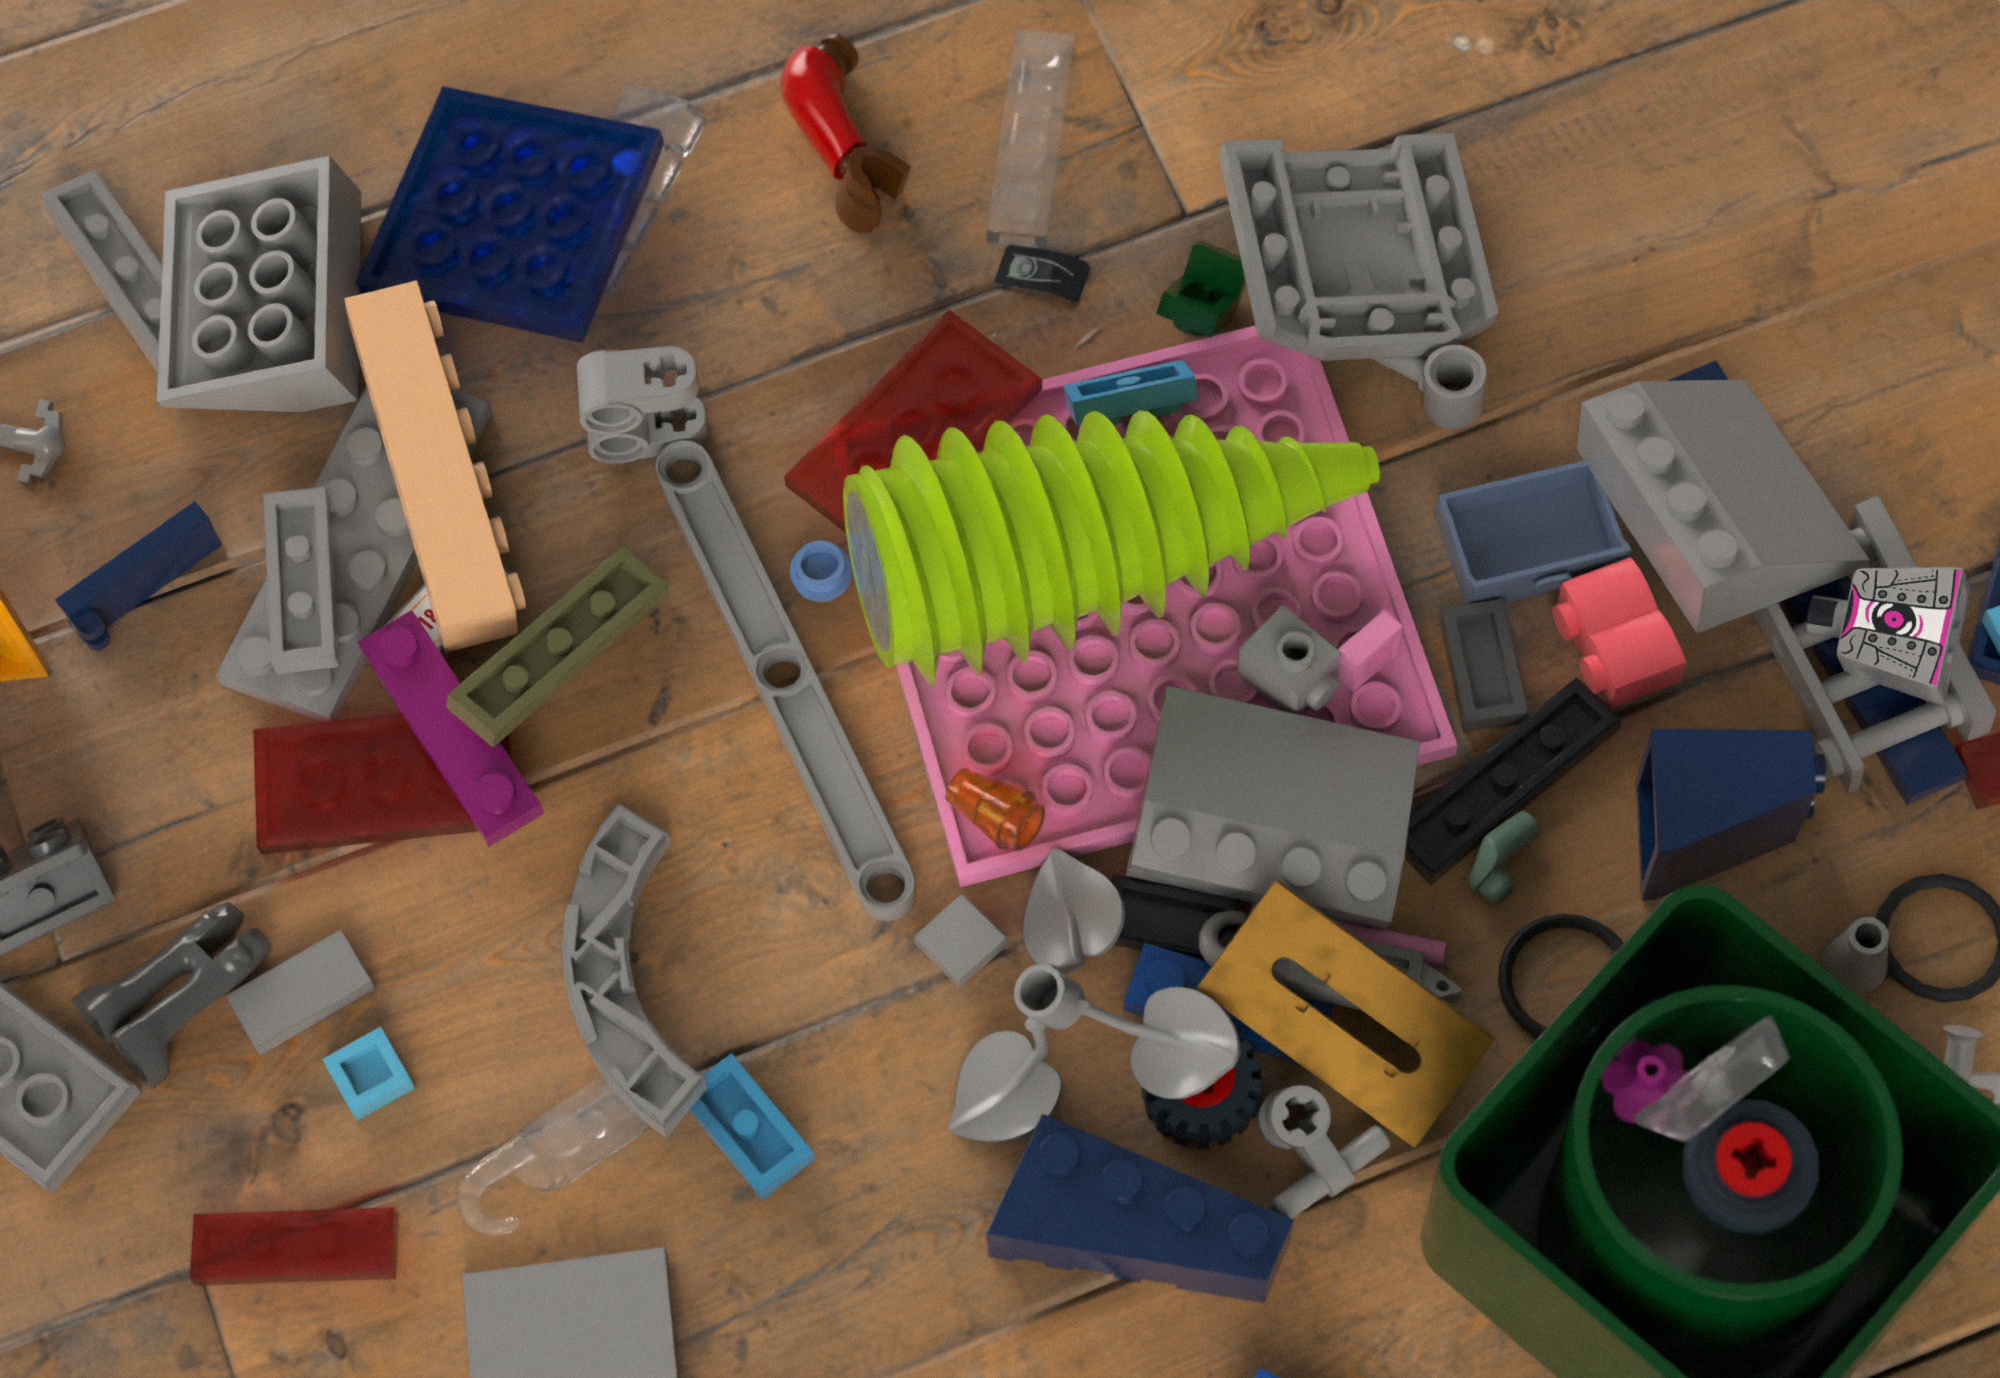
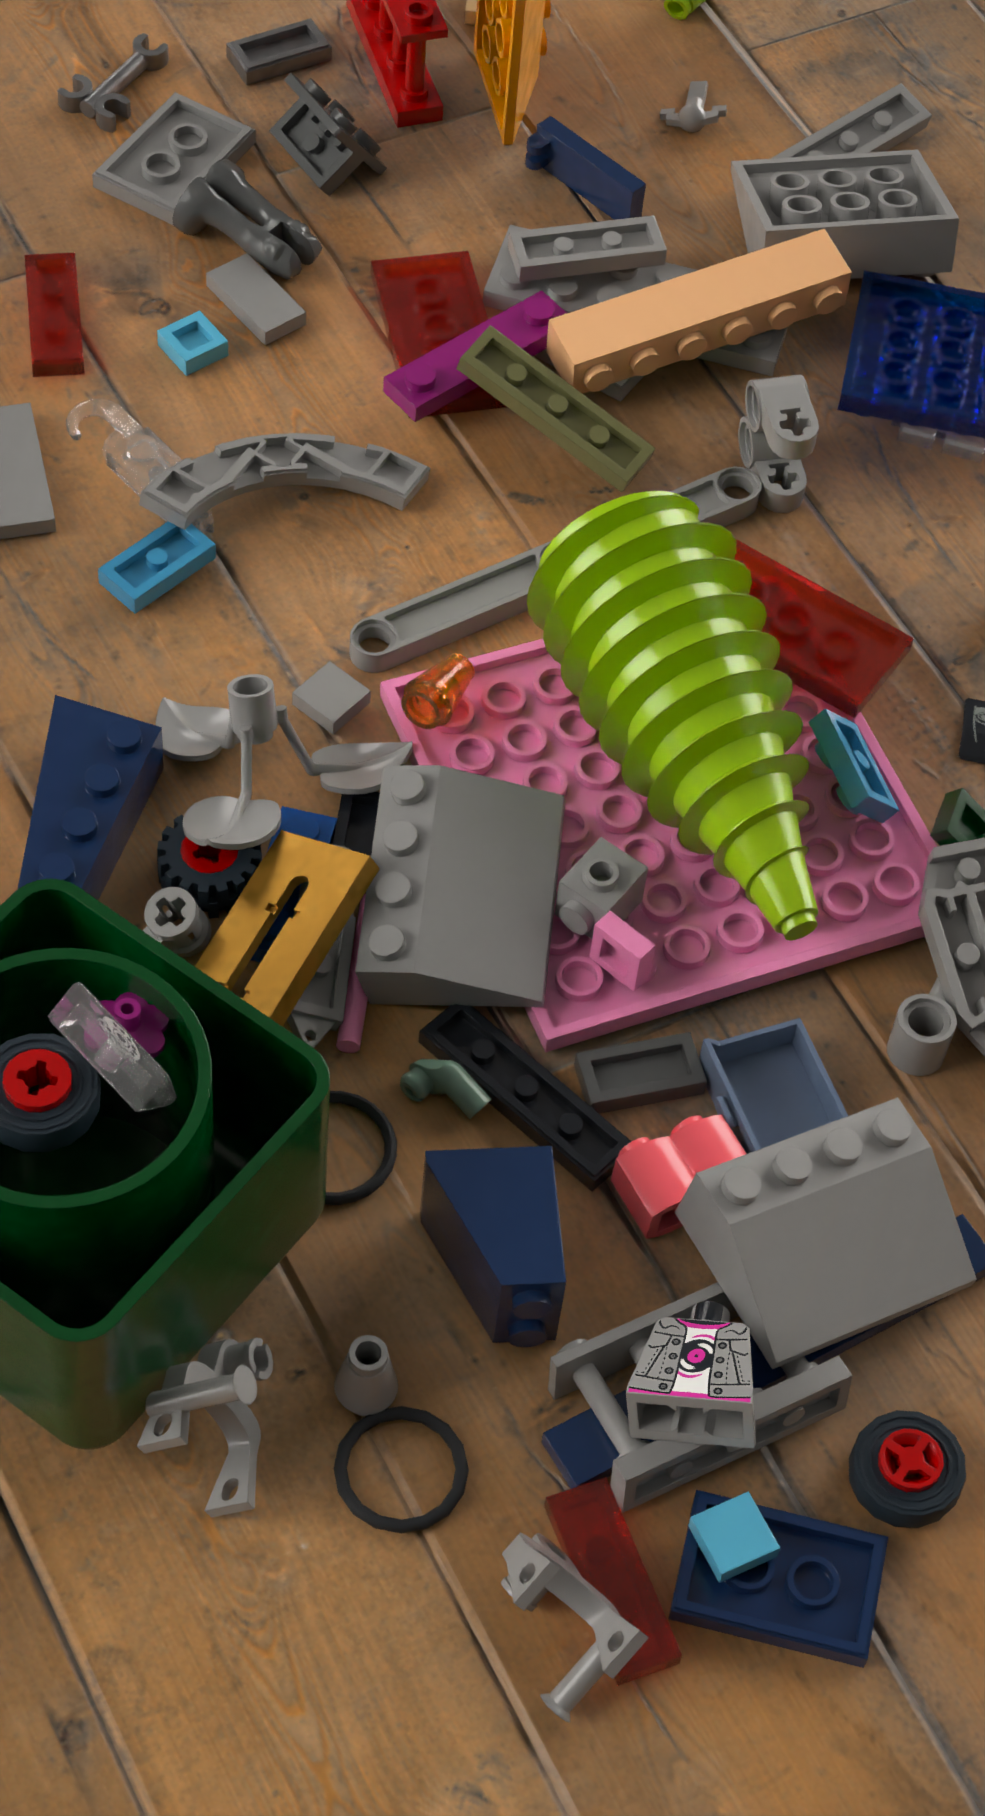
camera: 75 degrees right, 10 degrees down
(1937, 452) = (915, 1447): none -> black wheel

